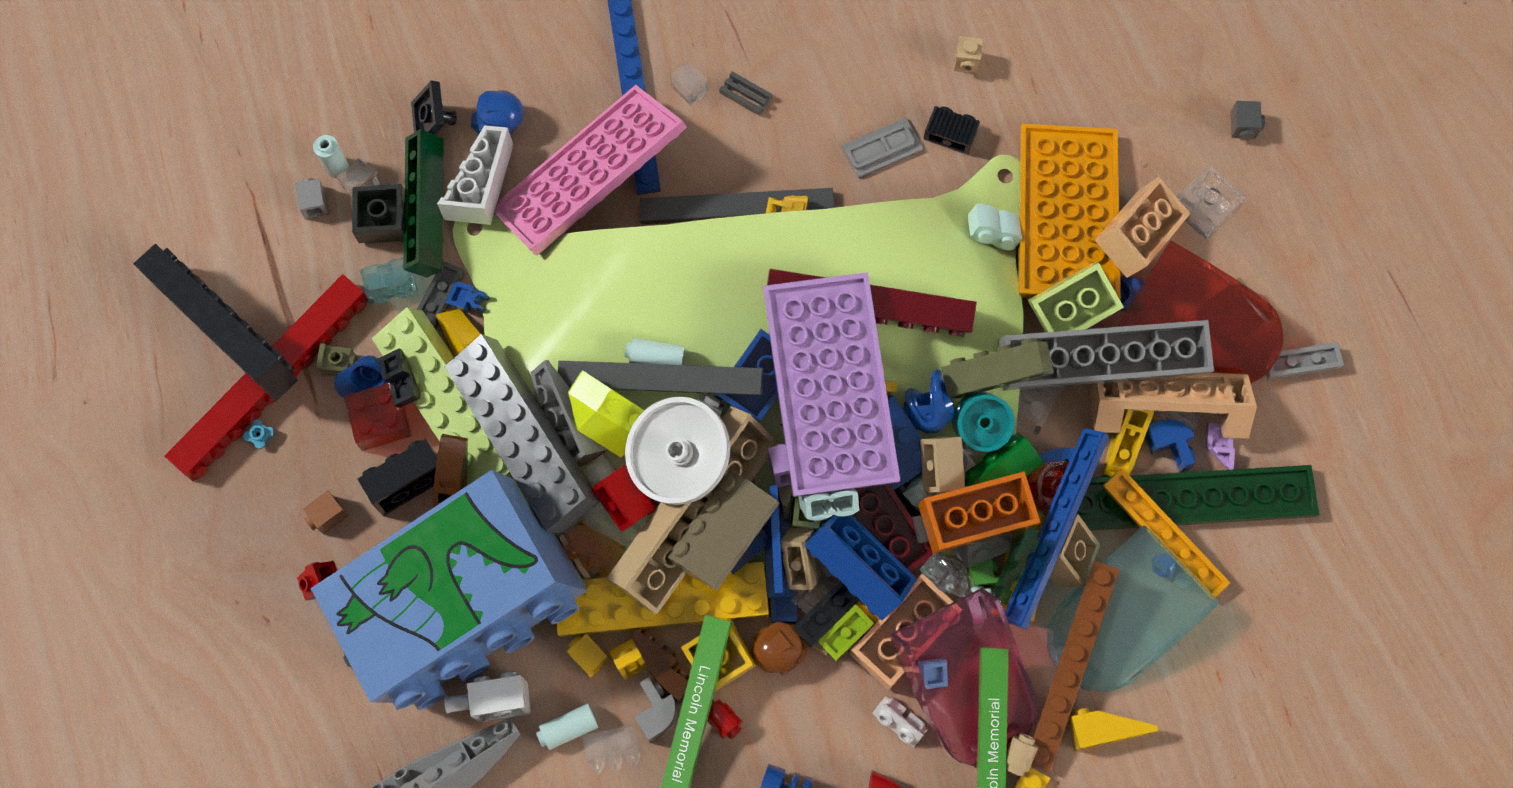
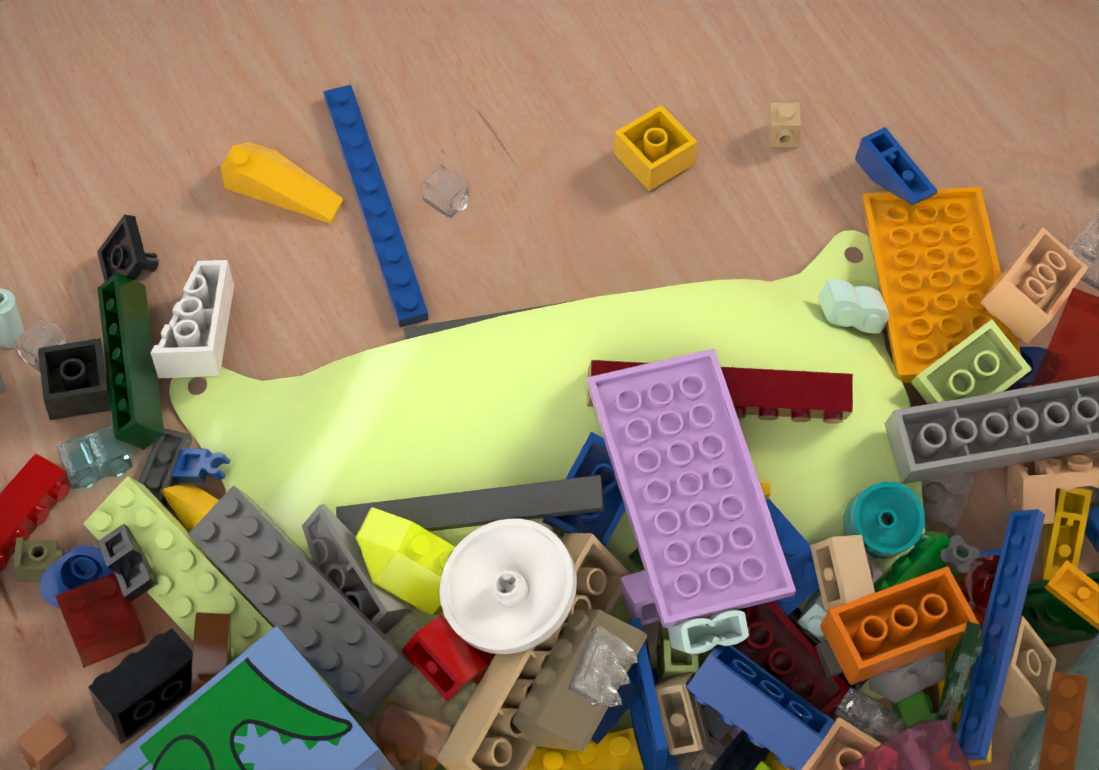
camera: 10 degrees left, 15 degrees down
(498, 110) = (210, 242): blue helmet -> none
(559, 56) = (277, 181): none -> yellow wedge
(587, 169) = (335, 295): bright pink plate -> none
(654, 352) = (456, 479): light aqua brick -> none
(724, 90) = (520, 194): dark grey tile -> none
(738, 528) = (601, 668): none -> clear plate
(860, 64) = (655, 147): none -> yellow brick
(882, 148) = (696, 241): light grey piece -> none
(932, 409) = (818, 513): blue helmet -> none
(951, 129) = (779, 209): black brick -> none
(997, 369) = (892, 449): olive brick -> none
(1029, 459) = (957, 563): none -> dark grey plate
(1049, 106) = (893, 168): none -> blue slope

